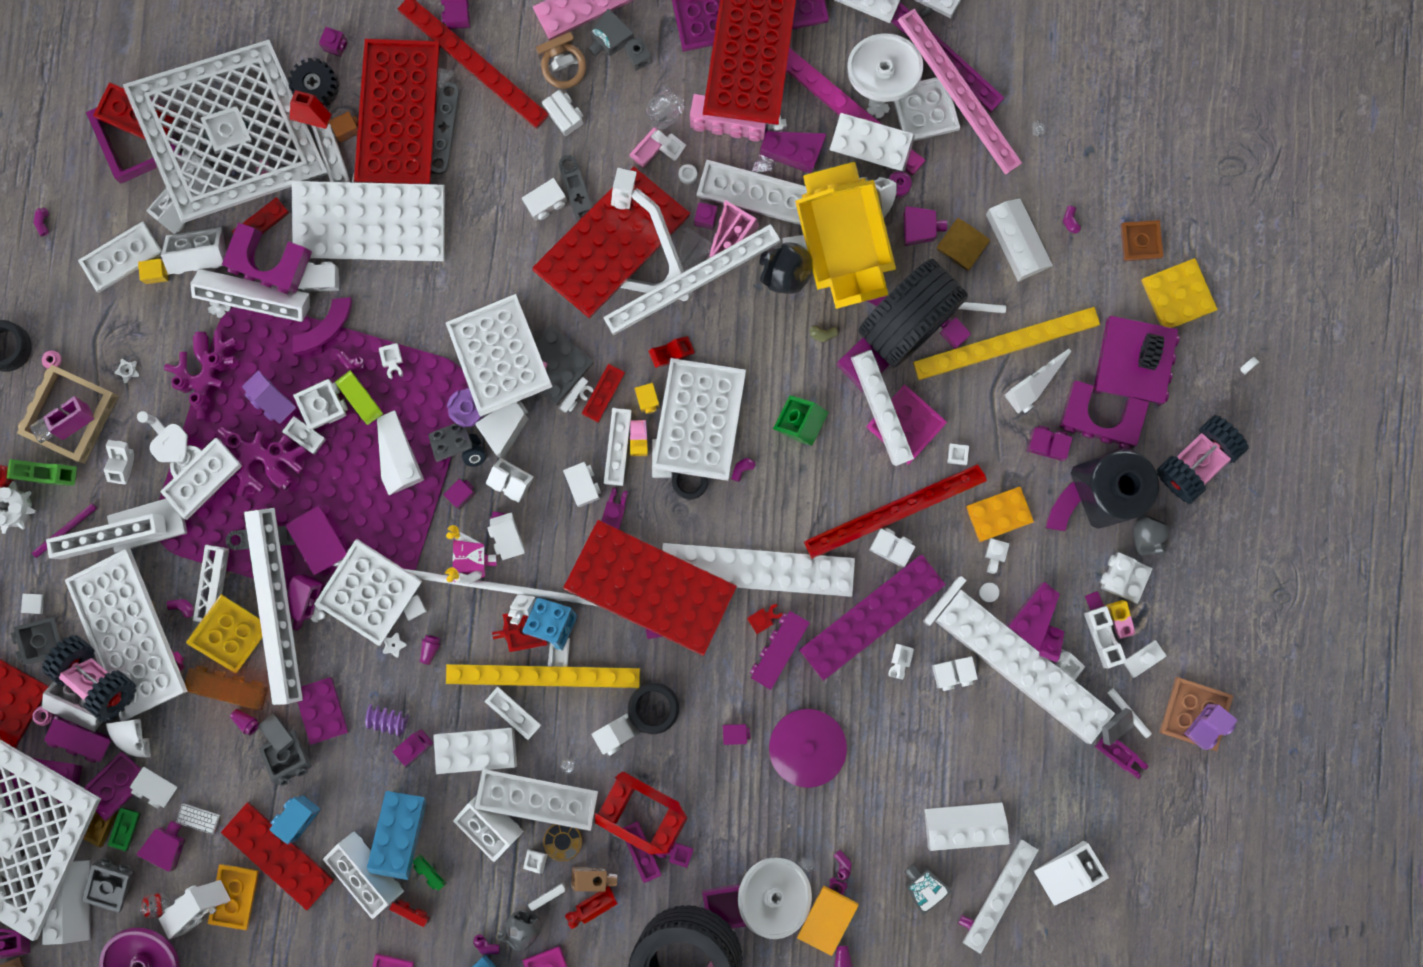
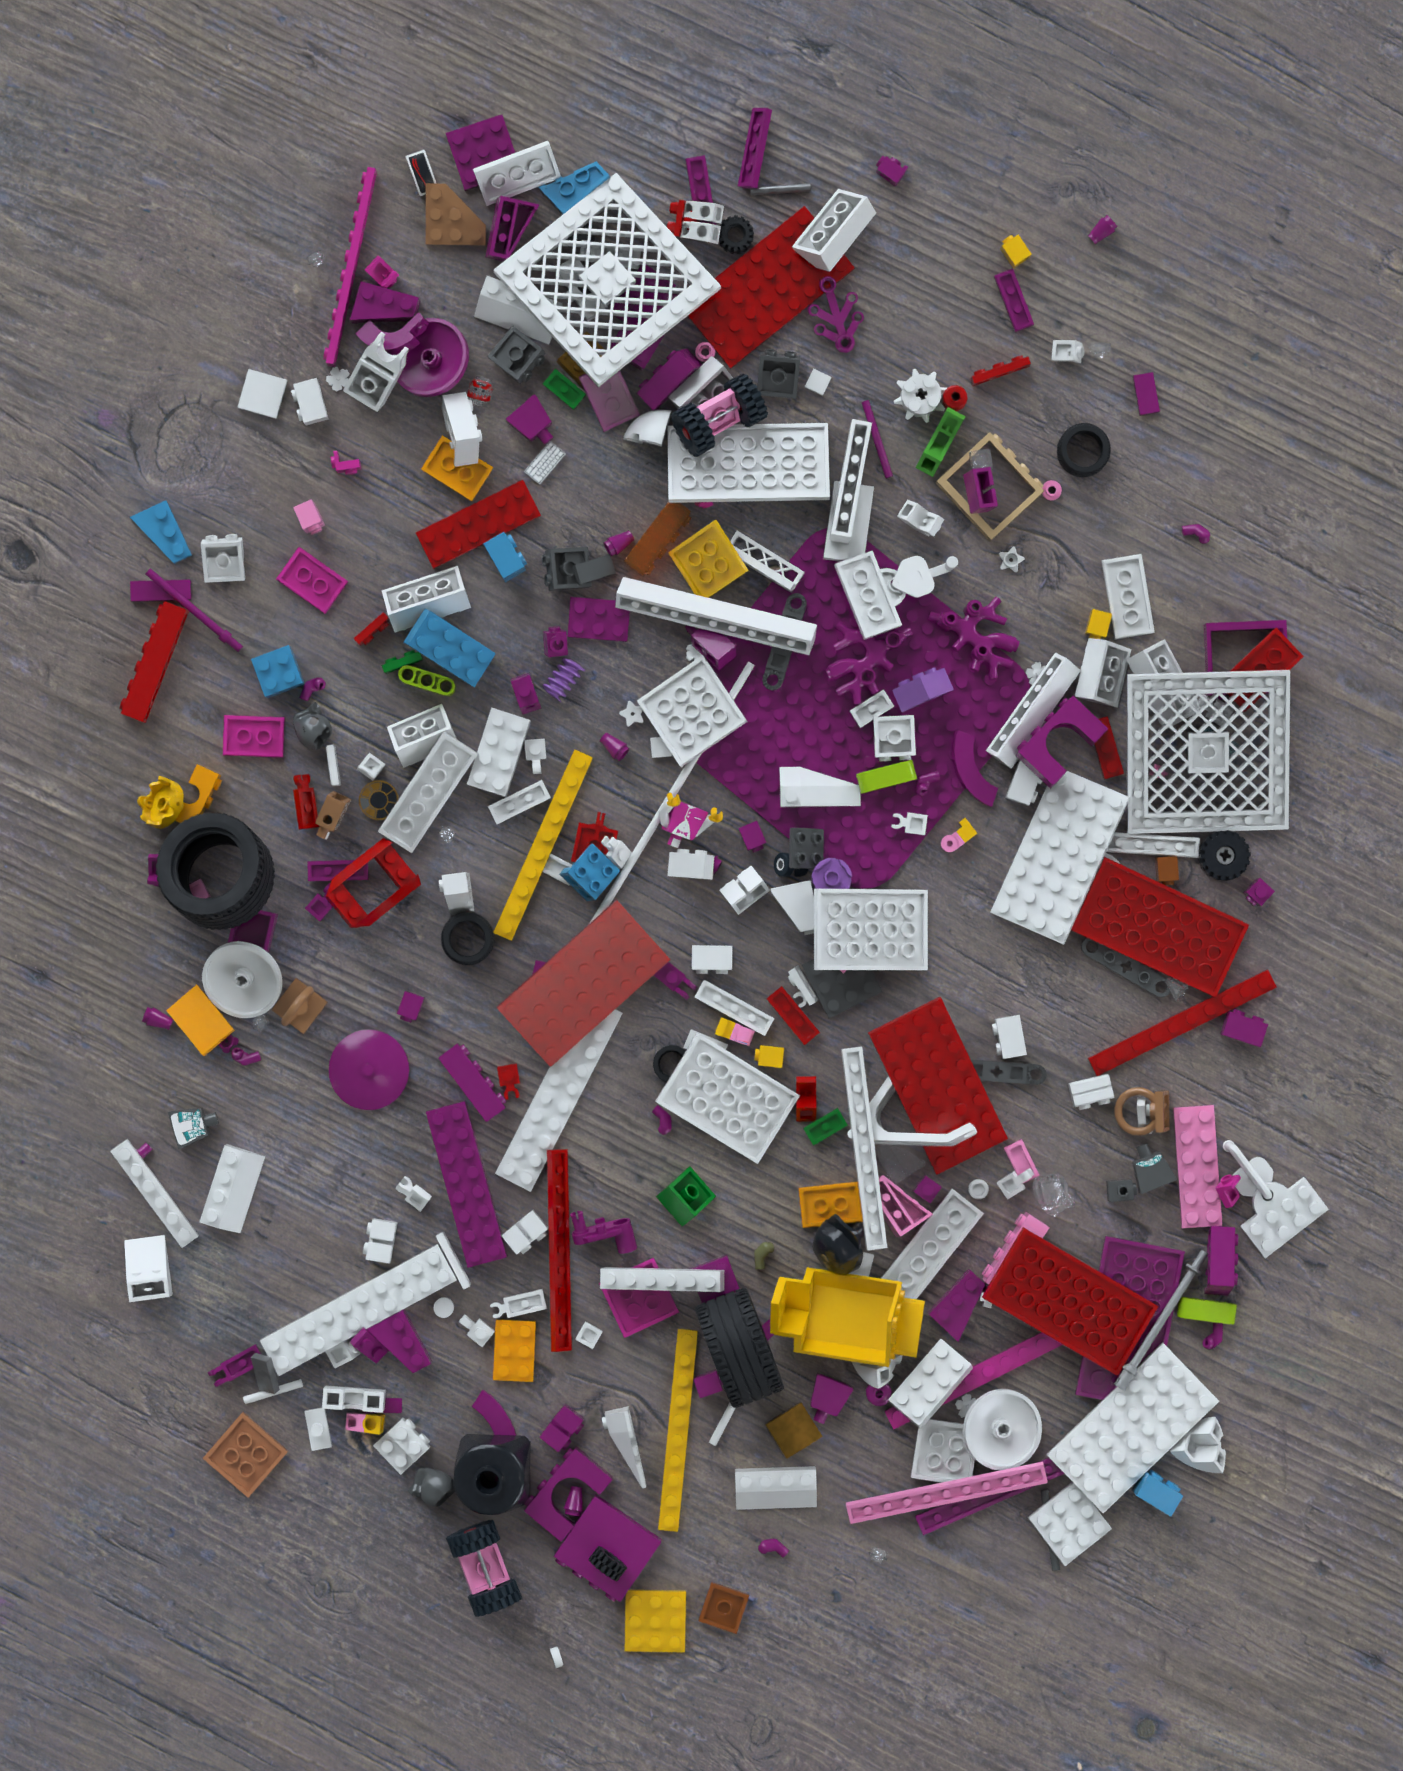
camera: 105 degrees right, 5 degrees up
(153, 788) = (591, 433): white brick -> none
(183, 605) = (755, 526): magenta arm -> none
(308, 110) = (1194, 841): red slope -> none
(316, 540) = (762, 682): magenta tile -> none
(355, 741) = (555, 642): none -> magenta brick
(389, 314) = (952, 842): none -> leg
(433, 852) = (418, 675): none -> lime beam
(462, 717) = (535, 751): none -> white plate
(623, 188) = (982, 1118): white brick -> none
(688, 325) = (825, 1126): none -> green plate
(752, 296) = (823, 1201): none -> light orange tile
(763, 164) = (955, 1268): clear slope -> none
(777, 835) = (299, 1006): none -> medium nougat tile
(854, 466) = (619, 1229): none -> magenta piece
(956, 525) = (521, 1304): none -> white plate
(1108, 406) = (574, 1502): none -> magenta cone
(1209, 725) = (229, 1460): medium lavender brick -> none

